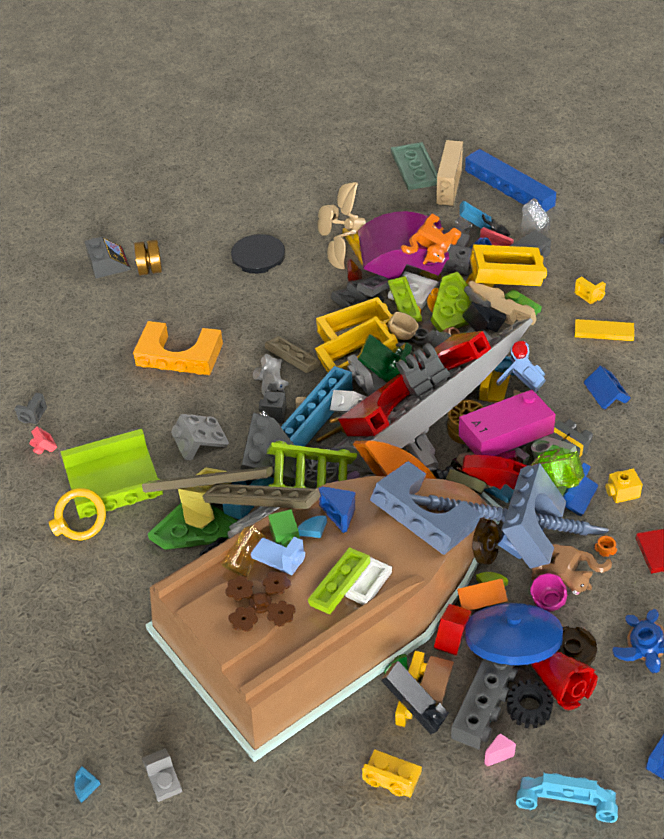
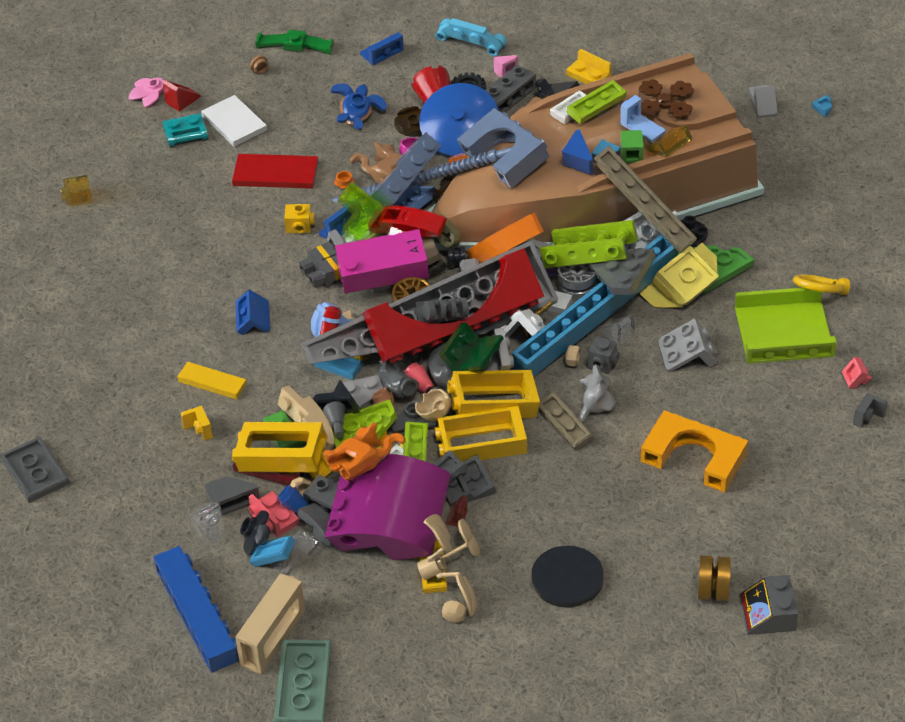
camera: 165 degrees left, 0 degrees up
(208, 479) = (690, 257): dark tan tile -> none

